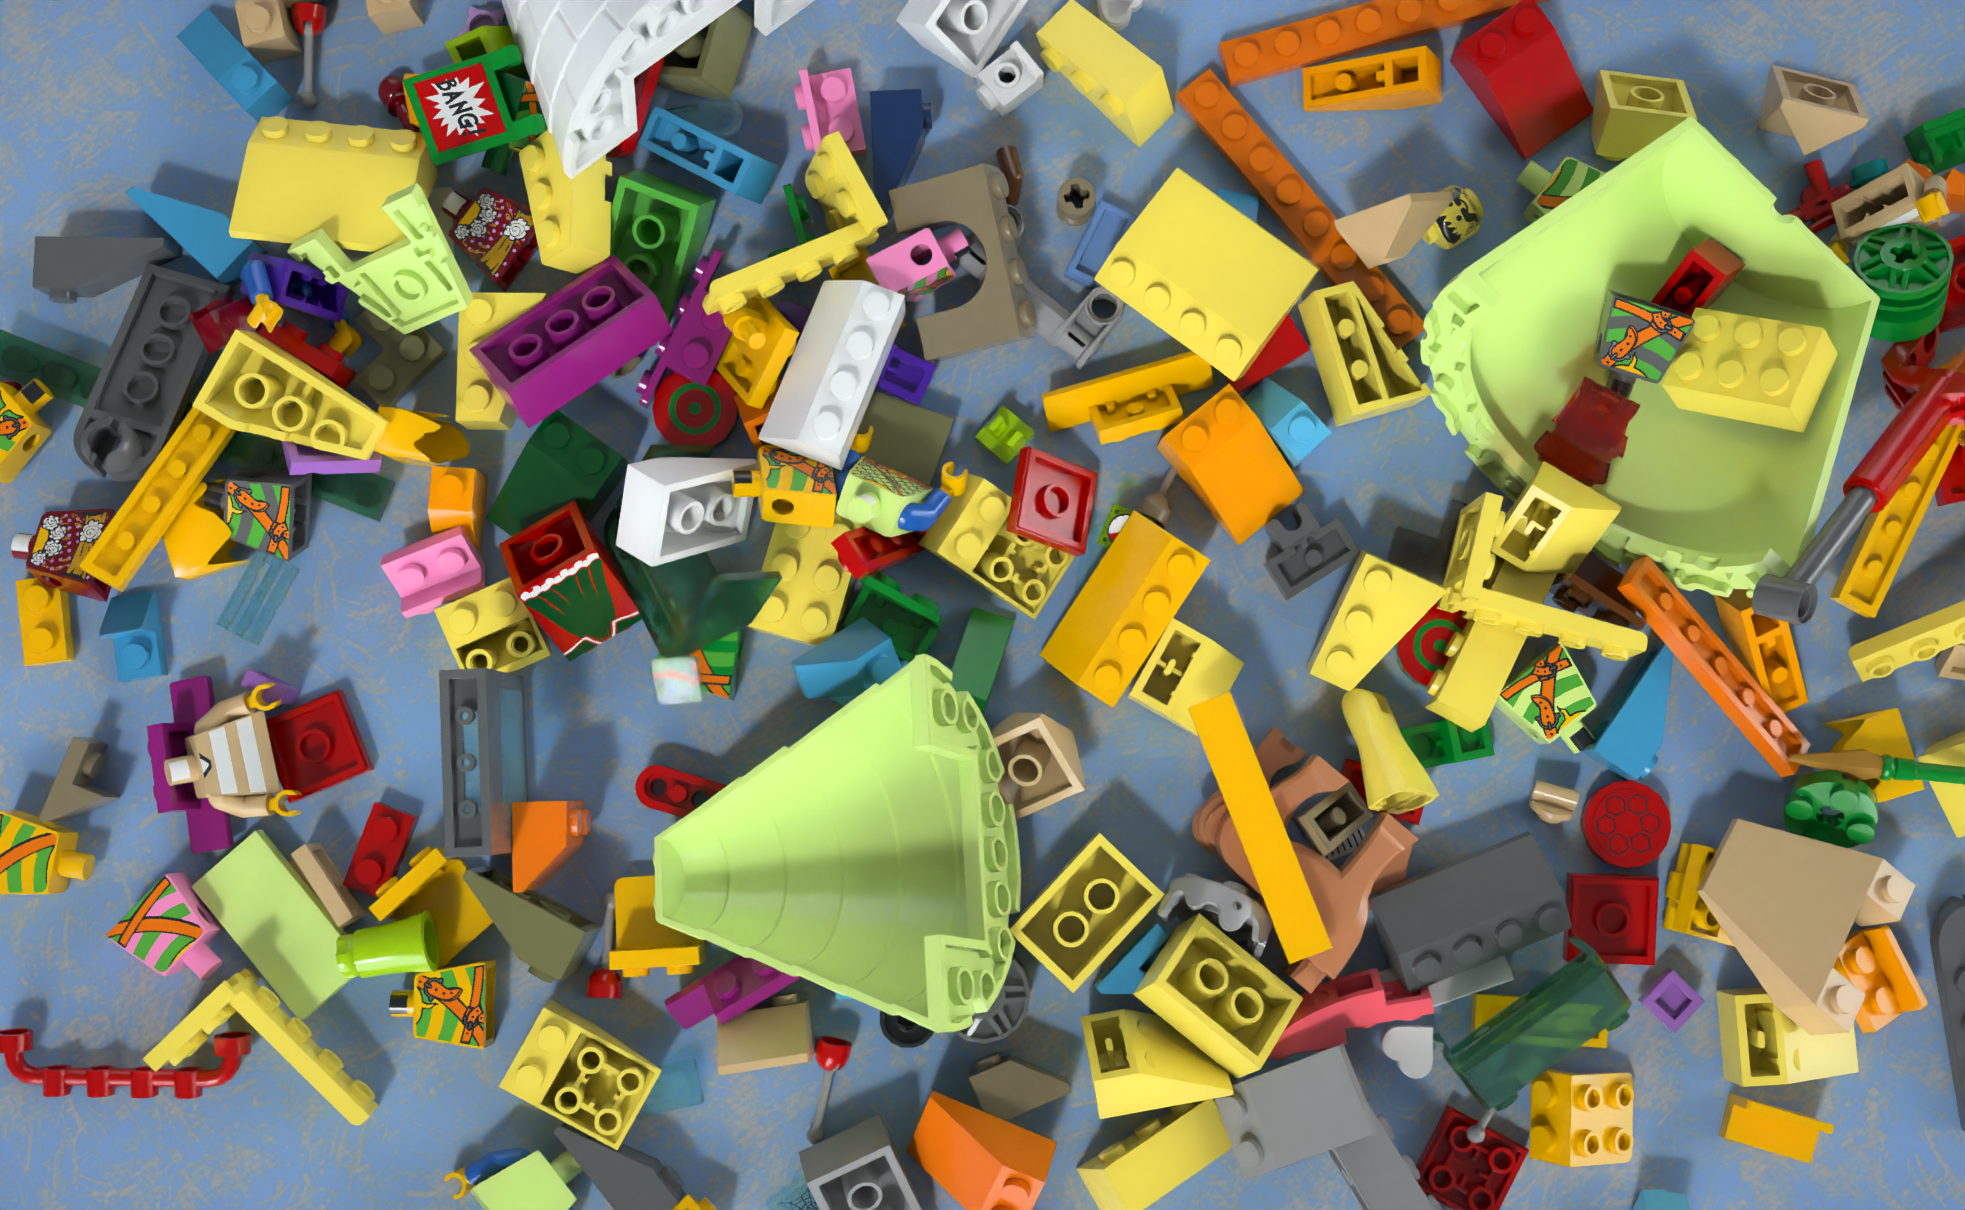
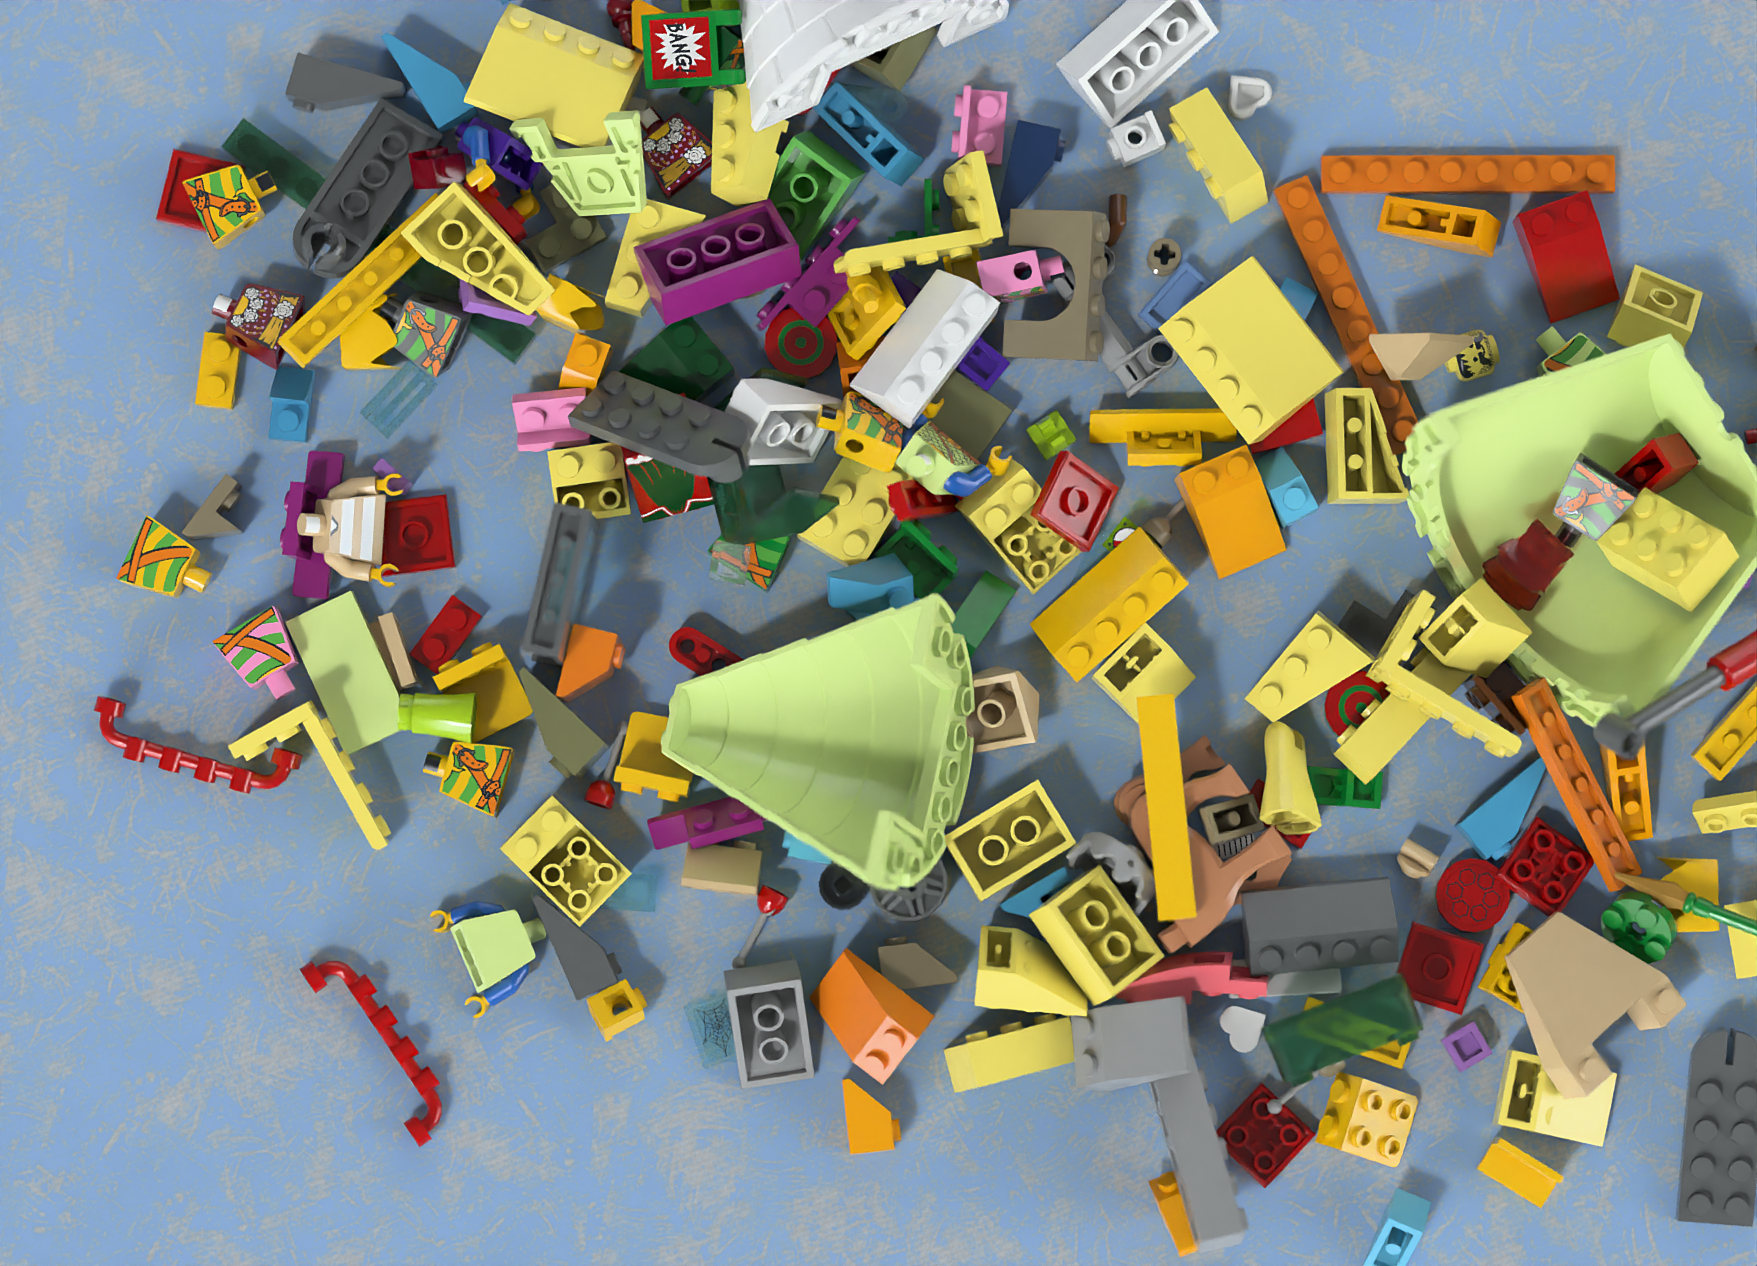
camera: 15 degrees right, 0 degrees up
(559, 546) = (665, 427): none -> dark grey plate
(1308, 551) = (1274, 600): dark grey plate -> none
(1549, 700) = (1436, 776): torso -> none
(1700, 771) = (1544, 867): none -> red tile
(1880, 970) = (1637, 1071): light orange bracket -> none

